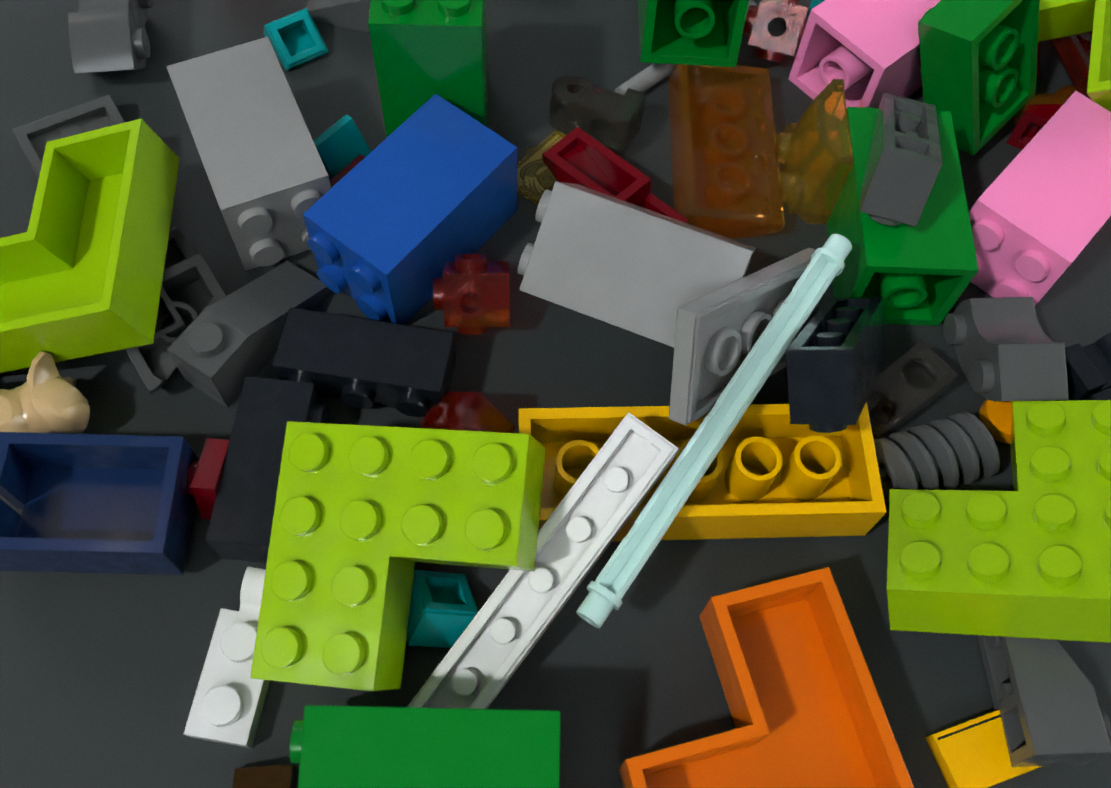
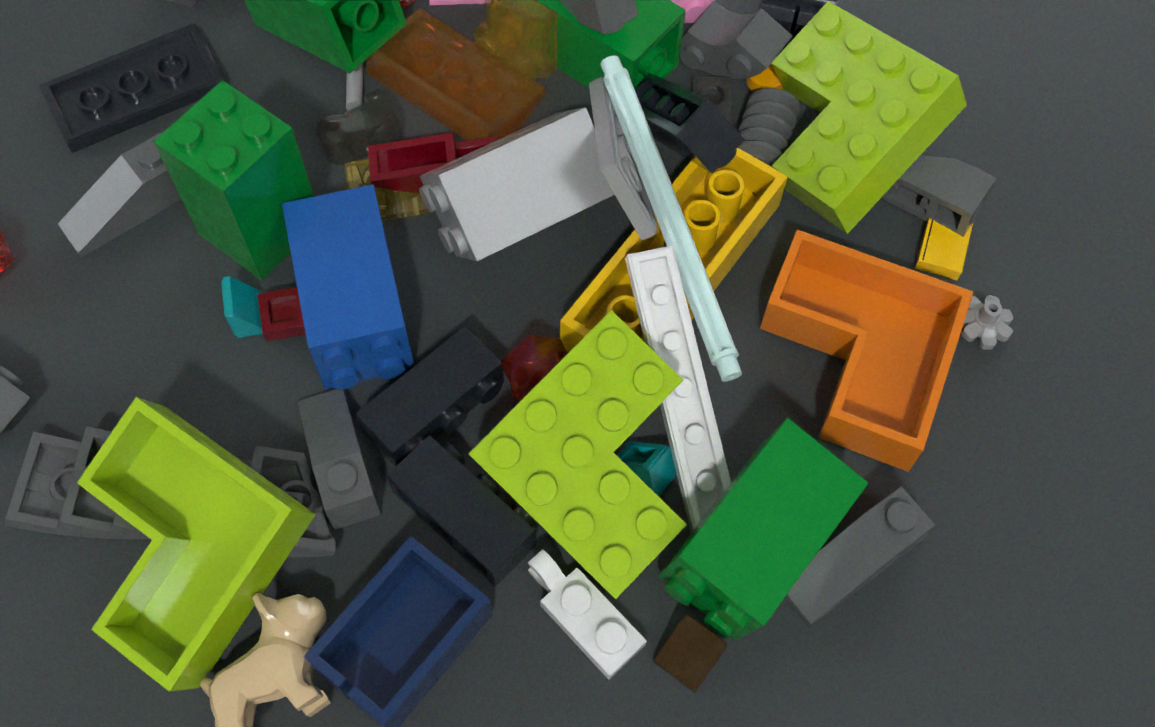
camera: 50 degrees left, 0 degrees up
(206, 475) = (444, 545): dark red plate -> none
(252, 148) = (201, 355): light grey brick -> none
(295, 39) = (100, 275): teal slope -> none
(473, 312) = (440, 296): clear red brick -> none

